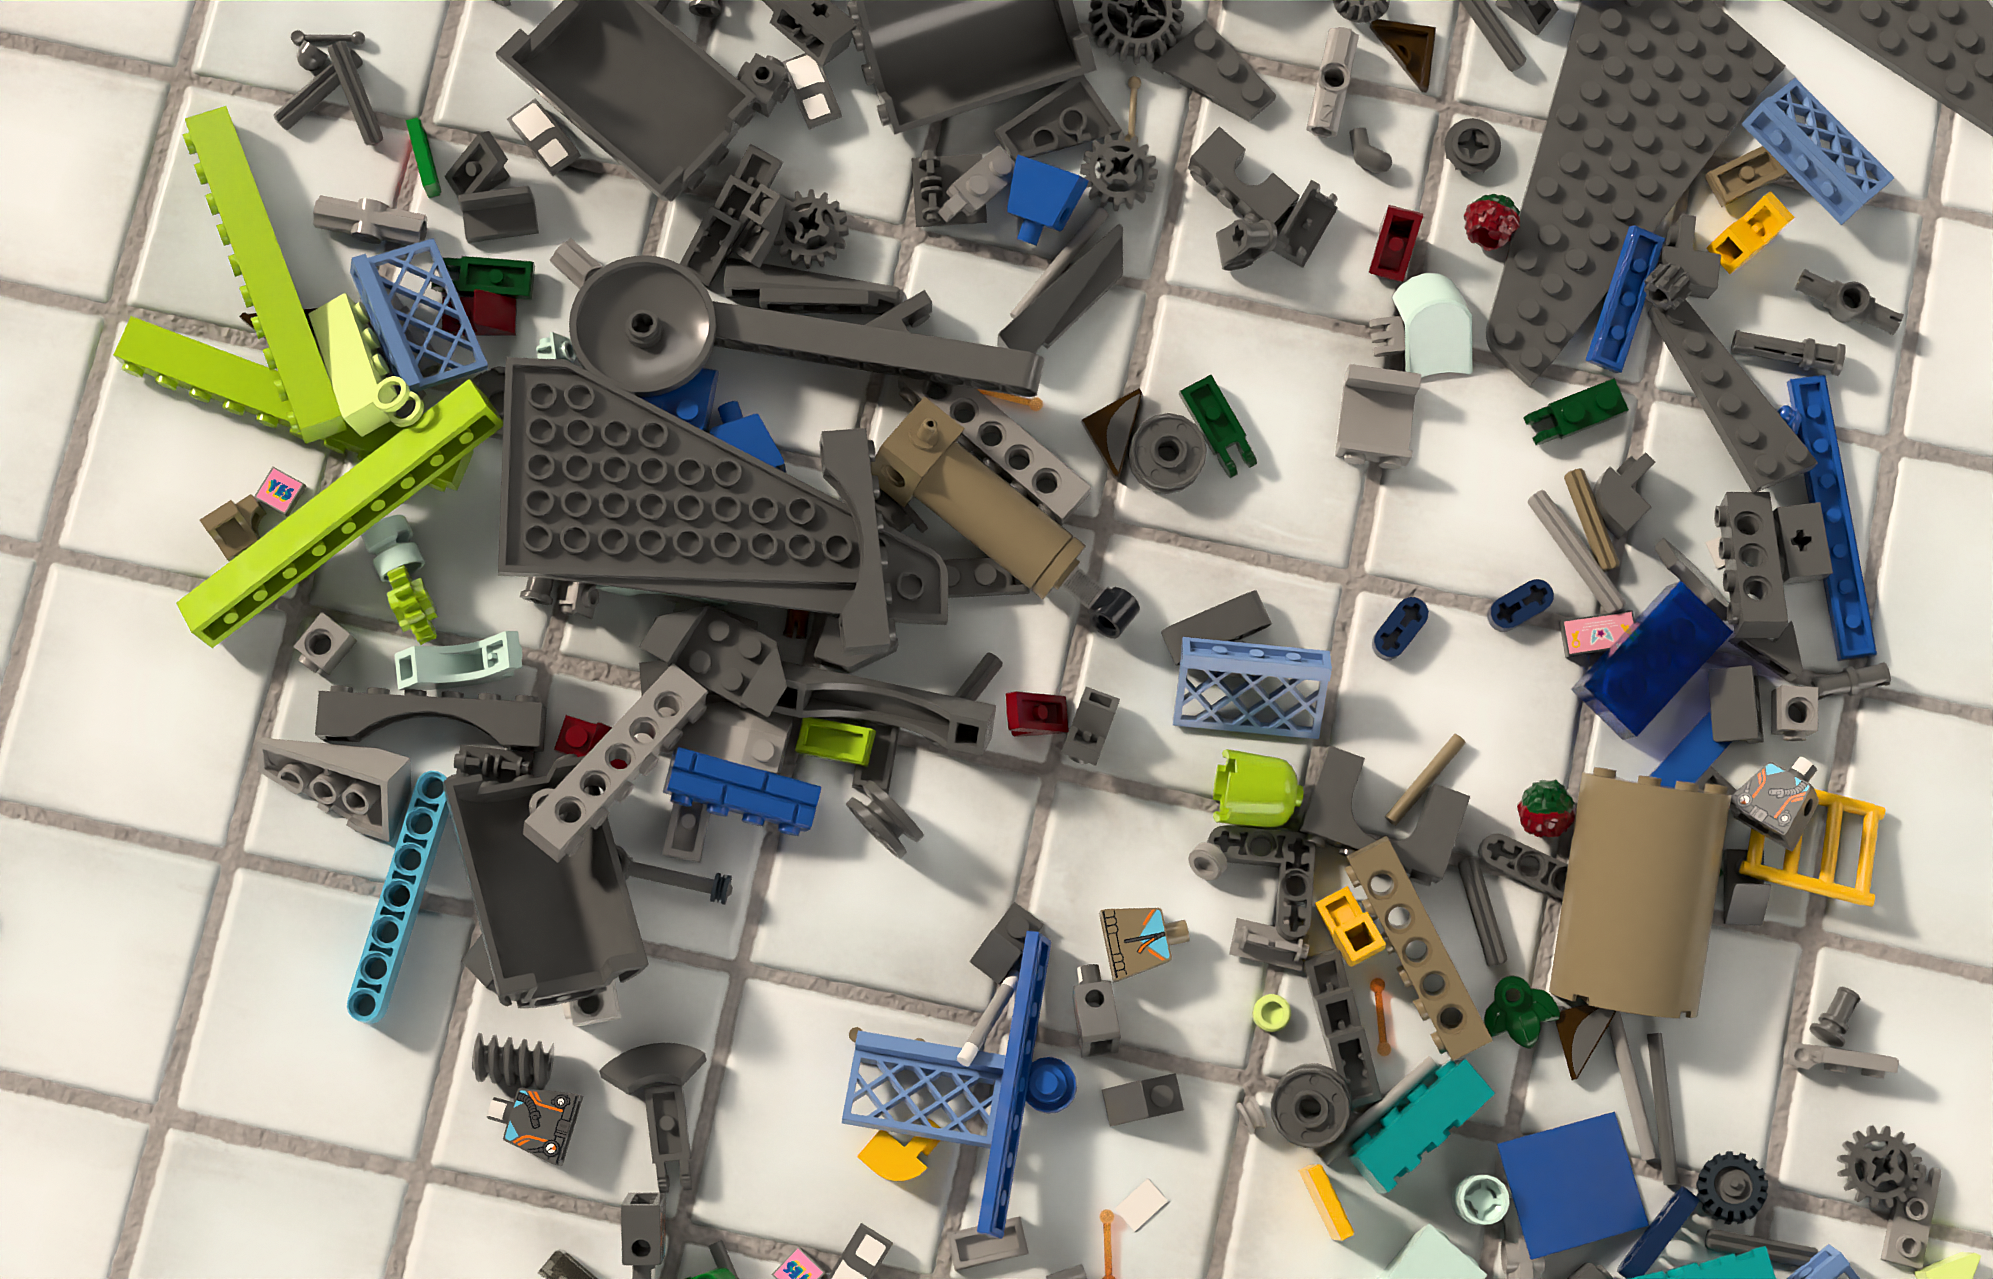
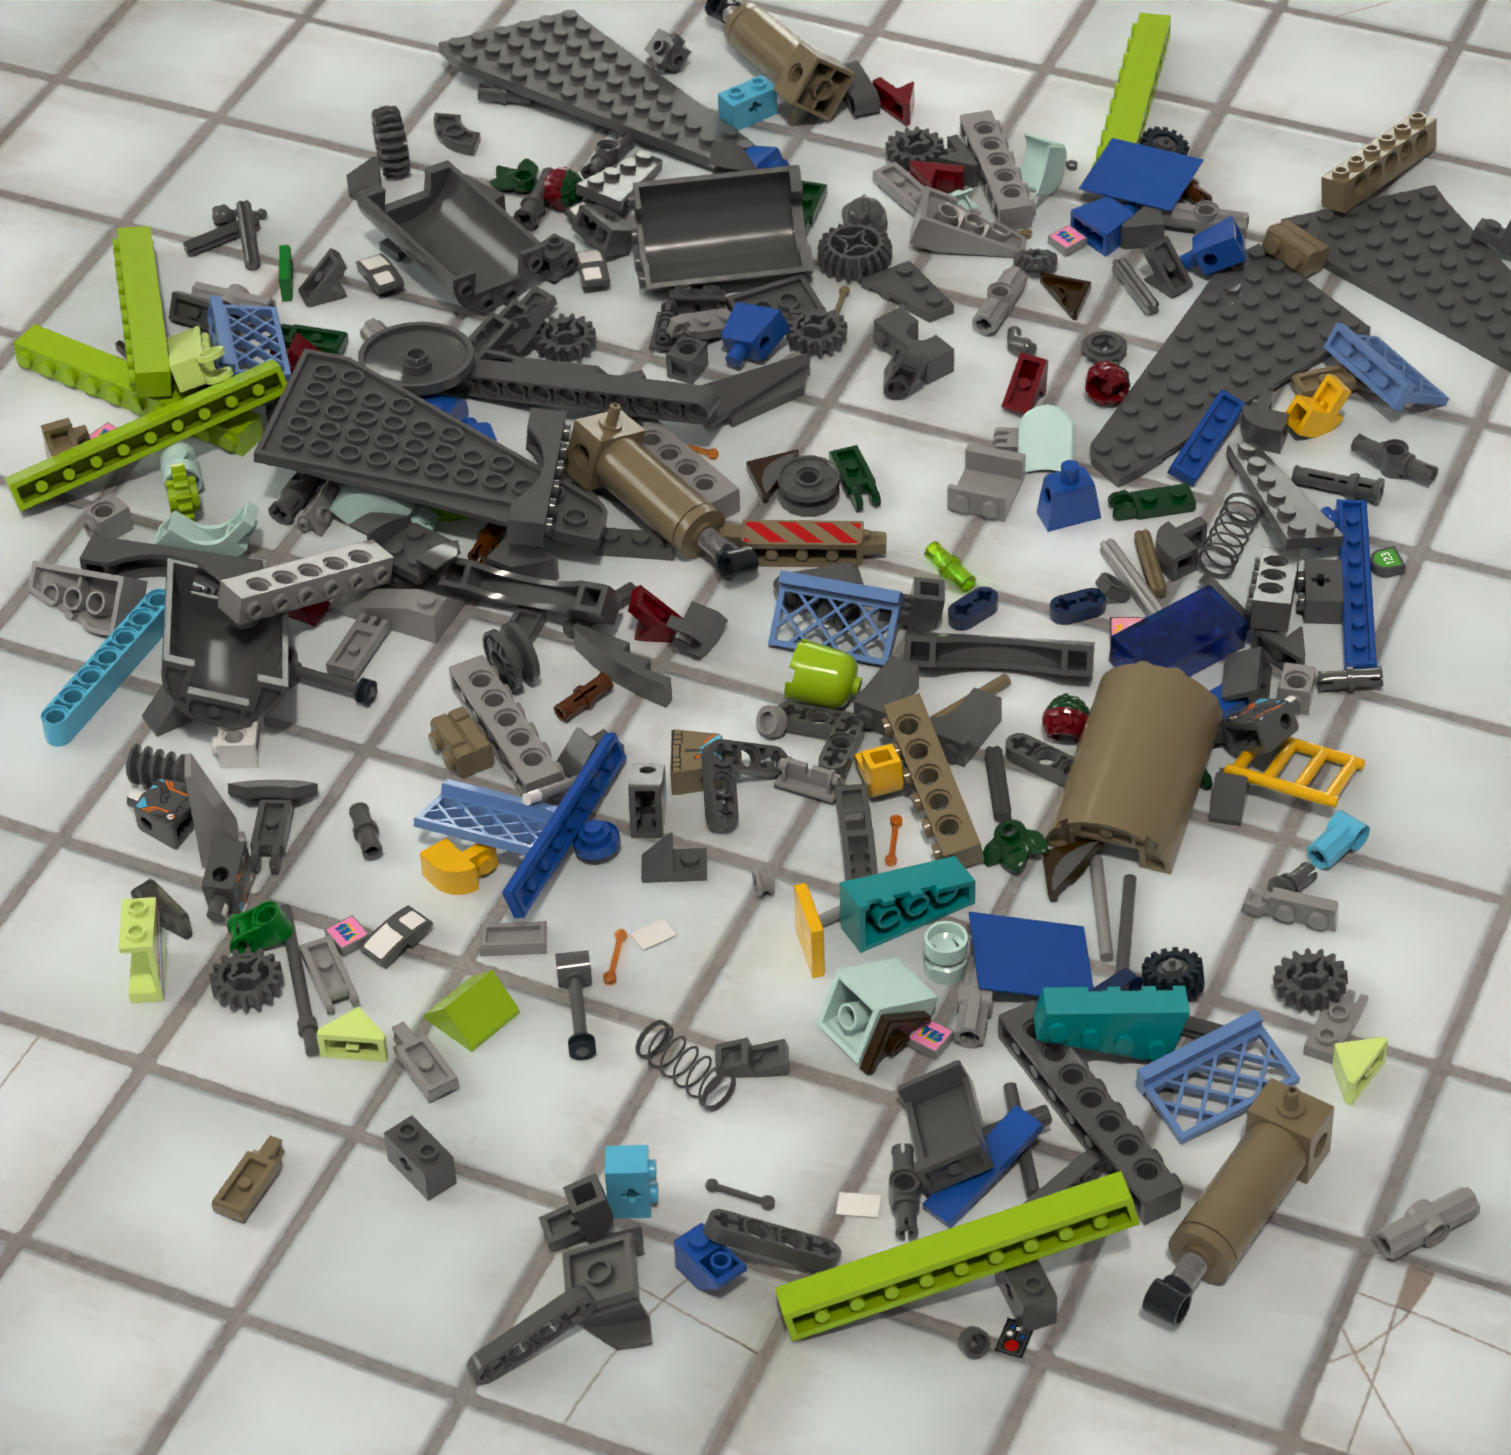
camera: 20 degrees right, 35 degrees down
(335, 249) = (191, 310): none -> dark grey hinge
(498, 214) = (331, 305): dark grey panel -> none
(605, 1155) = (209, 811): none -> light grey wedge
(742, 790) = (402, 628): blue brick -> none
(778, 1111) = (365, 830): none -> dark grey pin
(835, 741) = (485, 617): lime tile -> none
(836, 854) = (504, 724): none -> light grey brick
(855, 956) = (461, 743): none -> dark tan brick
(967, 131) = (707, 298): none -> dark grey hinge
(968, 261) = (687, 359): none -> dark grey brick
(978, 852) = (583, 697): none -> reddish brown pin
(999, 786) = (624, 668): none -> dark grey slope
(1176, 966) = (726, 771): none -> dark grey beam
(1181, 554) = (806, 541): none -> dark tan hinge
(1271, 1013) = (800, 826): yellowish green tile -> none
(1306, 225) = (956, 373): dark grey hinge -> none
(1308, 1128) = (812, 857): dark grey wheel -> none
(1348, 646) = (922, 606): none -> dark grey brick
(1361, 565) = (950, 566): none -> clear neon green pin
(1484, 438) = (1068, 497): none -> blue torso
(1522, 708) = (1000, 652): none -> dark grey arch
(1555, 572) = (1112, 587): none -> dark grey tile
(1667, 286) = (1240, 424): dark grey gear -> none
(1683, 427) = (1249, 523): none -> dark grey piece
(1862, 474) = (1387, 562): none -> tile
(1879, 936) = (1341, 835): none -> medium azure piece

